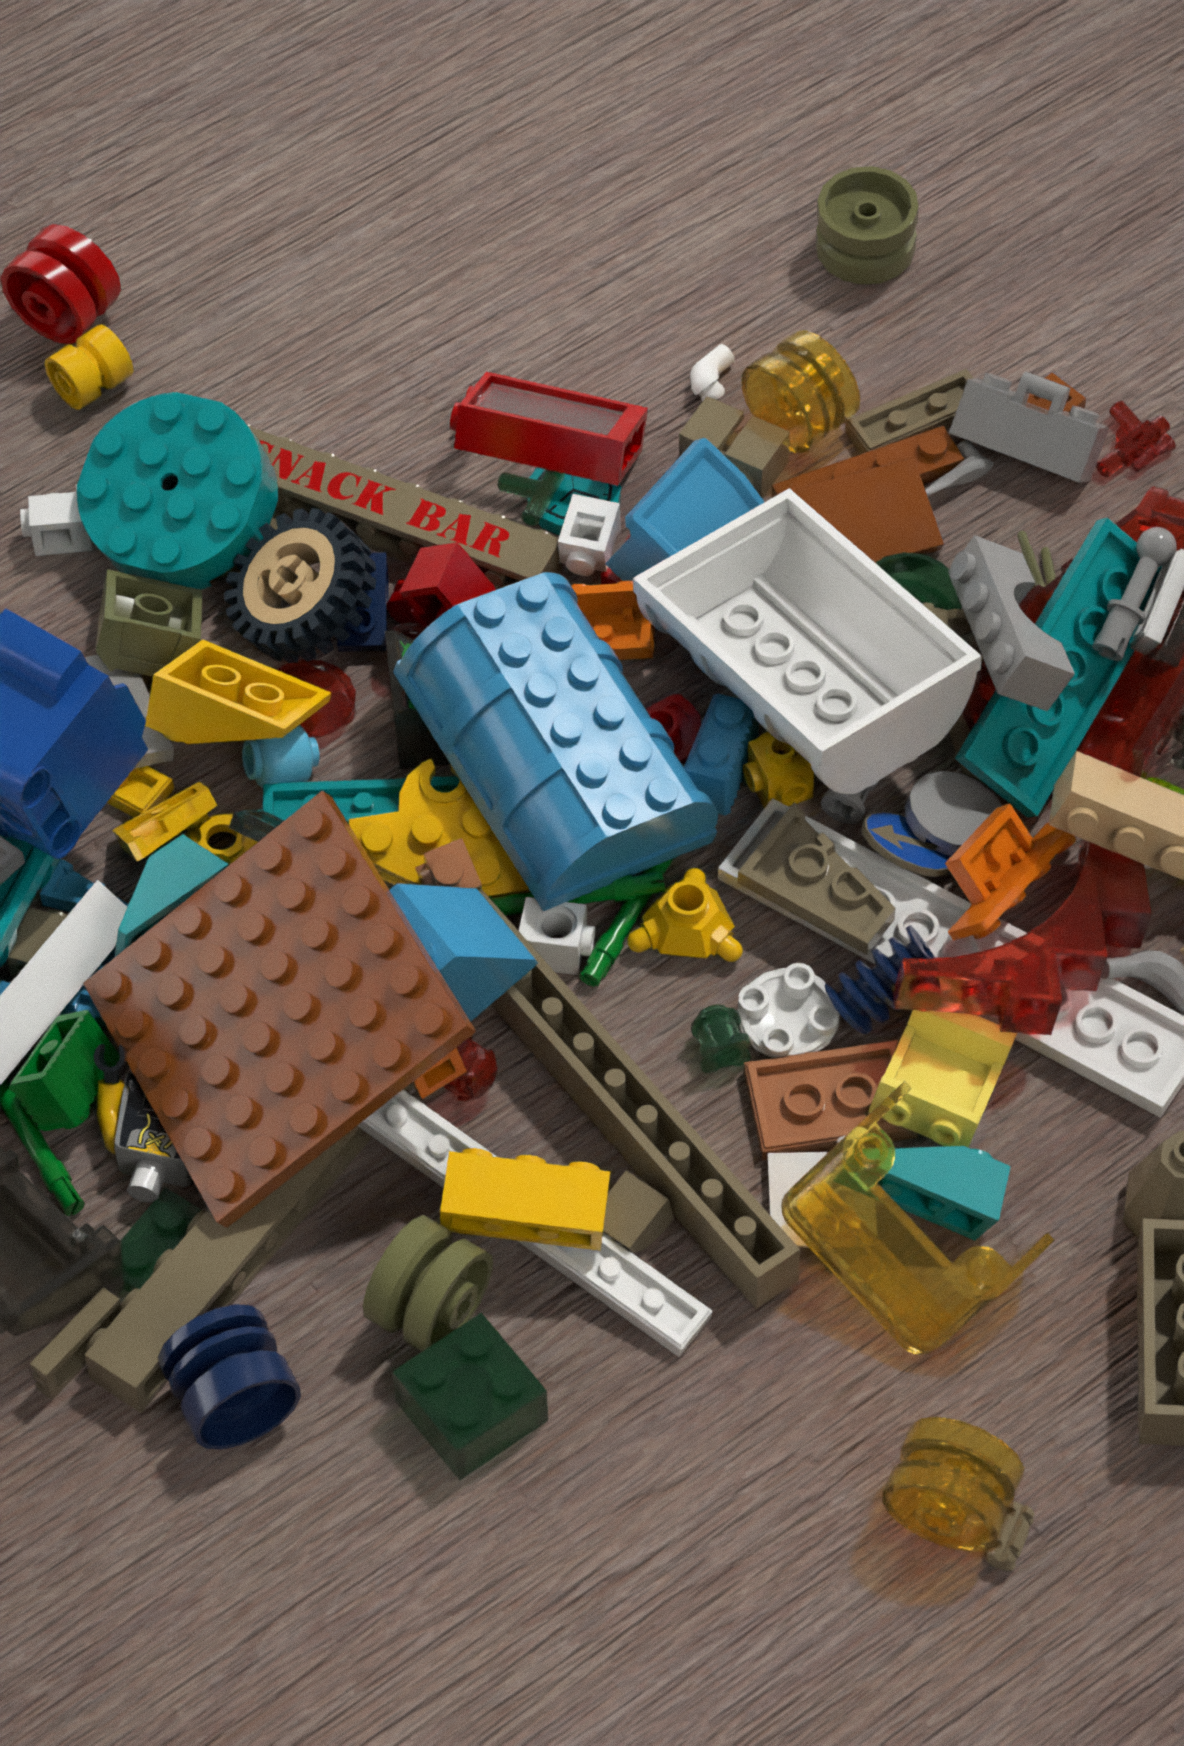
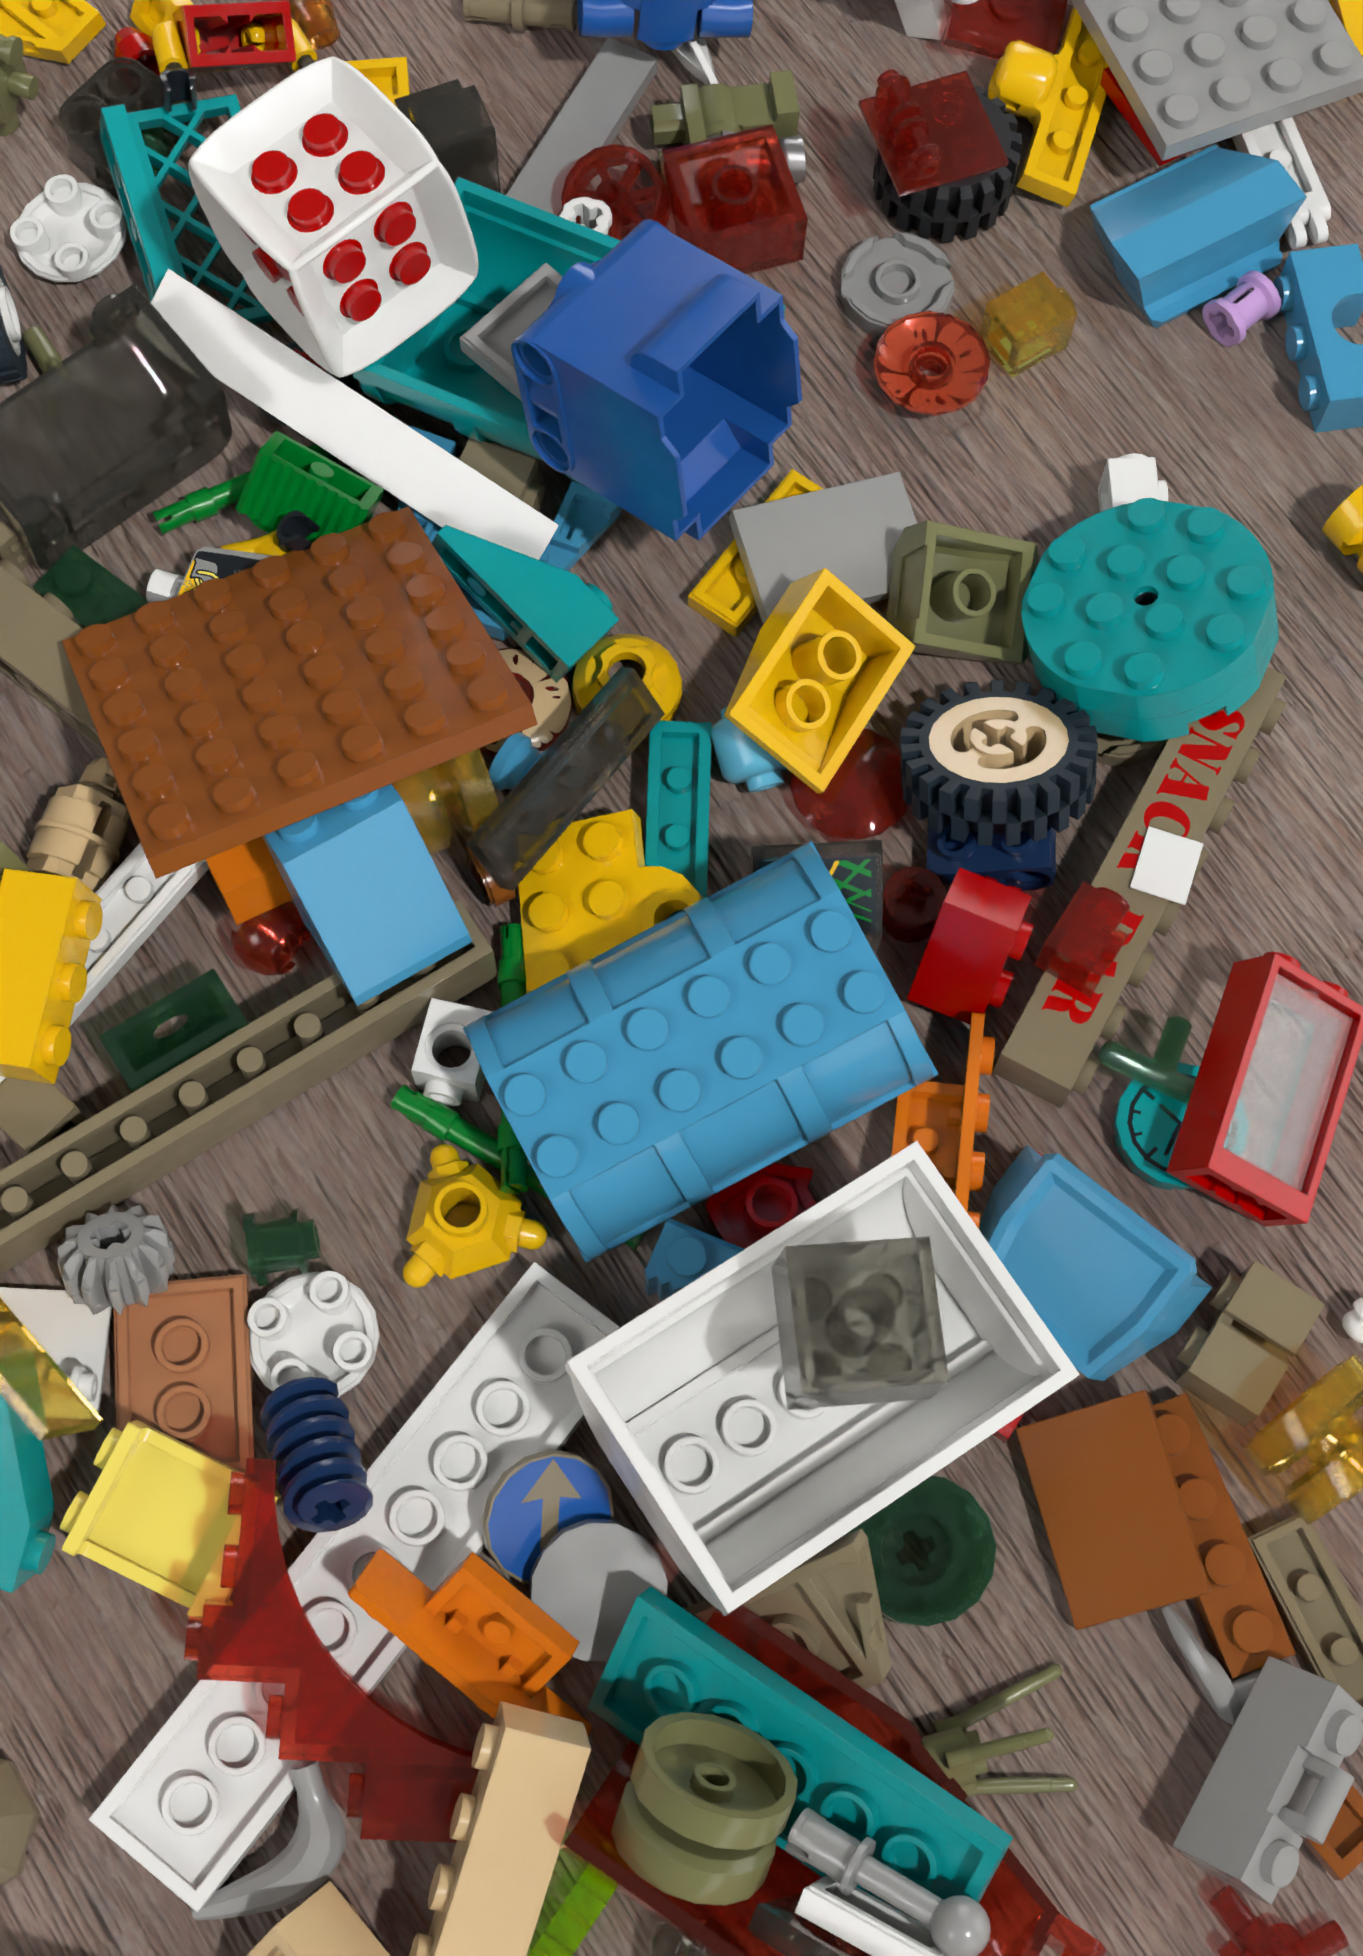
camera: 90 degrees right, 15 degrees up
(164, 821) = (654, 604): yellow wing -> none
(376, 1209) = (81, 829): none -> tan piece
(380, 484) = (1166, 865): none -> white sticker
(449, 517) = (1085, 938): none -> clear red brick
(449, 867) = (515, 906): nougat brick -> none
(542, 1099) = (210, 1016): none -> clear green brick
(589, 534) = (1097, 1113): white brick -> none
(747, 1134) = (116, 1259): none -> light grey gear
(780, 578) = (859, 1323): none -> clear smoke brick
(813, 882) = (476, 1382): dark tan wing -> none
(1017, 653) = (747, 1681): light grey arch -> none
(1107, 697) = (704, 1808): none -> olive wheel

